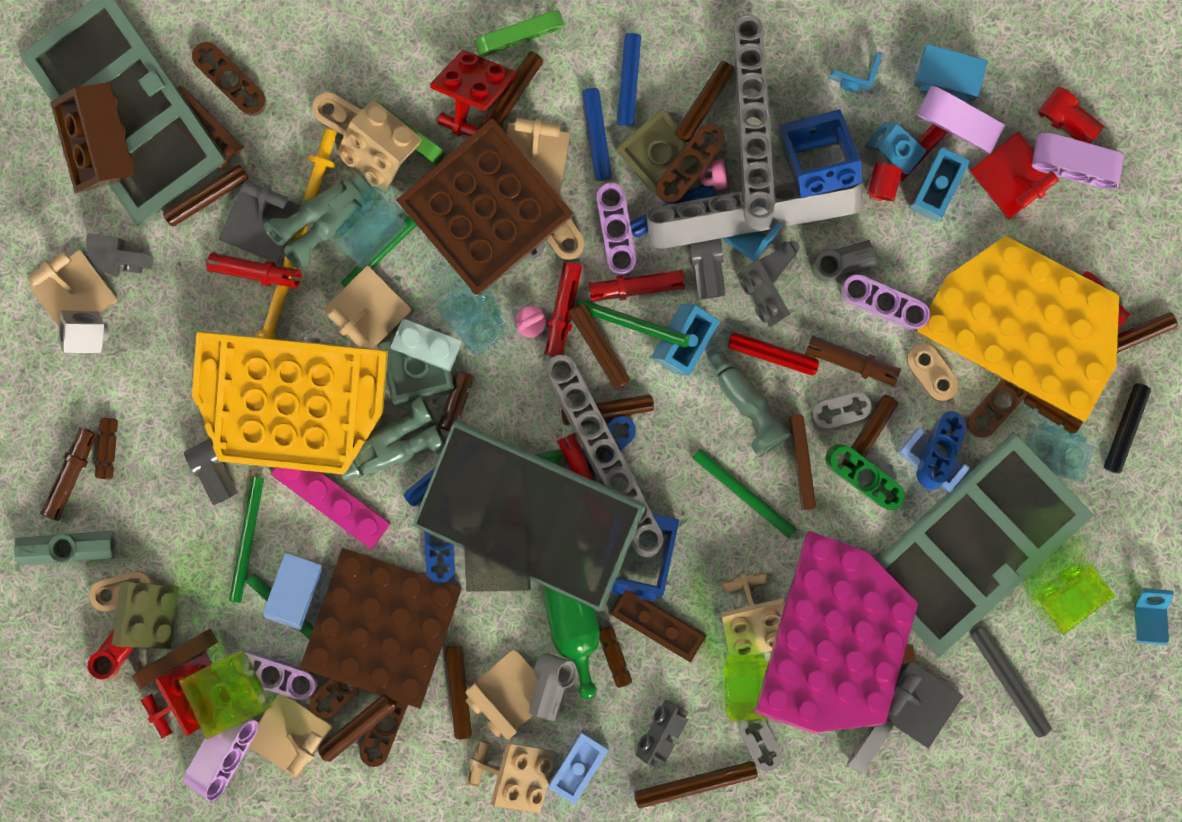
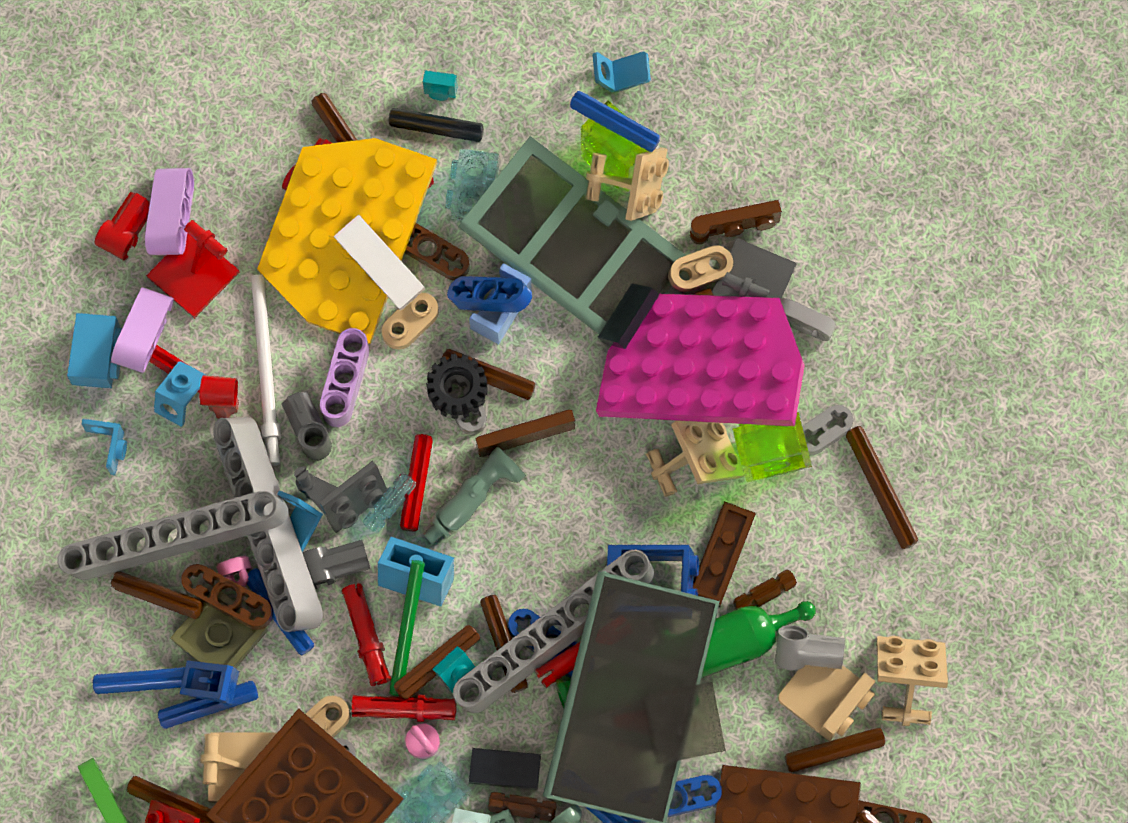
camera: 95 degrees left, 15 degrees down
(492, 391) = (505, 768): none -> black tile
(578, 767) = (888, 607): light blue panel -> none
(589, 361) = (453, 668): none -> teal plate
(612, 137) = (210, 681): none -> blue slope
(616, 214) = (291, 663): lavender beam -> none
(653, 746) = (820, 526): dark grey hinge -> none
(744, 493) = (568, 488): green bar -> none
(756, 325) = (389, 503): none -> clear light blue axle
(829, 129) = (170, 463): blue window -> none
(845, 226) = (270, 429): none -> white bar
(853, 361) = (413, 386): reddish brown pin -> none
(870, 489) = (530, 380): green beam -> none
(875, 405) = (451, 367): none -> black tyre
(898, 577) = (628, 316): none -> black tile
(935, 654) = (699, 269): none -> tan plate
(939, 184) = (213, 341): dark azure brick -> none
(979, 695) = (734, 221): none -> reddish brown plate
(989, 351) = (379, 262): none -> white tile
(1011, 681) = (713, 194): dark grey axle -> none
(1022, 614) = (644, 186): none -> tan plate
(1054, 414) = (433, 195): reddish brown axle -> none
(1090, 598) = (615, 121): none -> blue axle
(1166, 438) = (440, 85): none -> teal plate

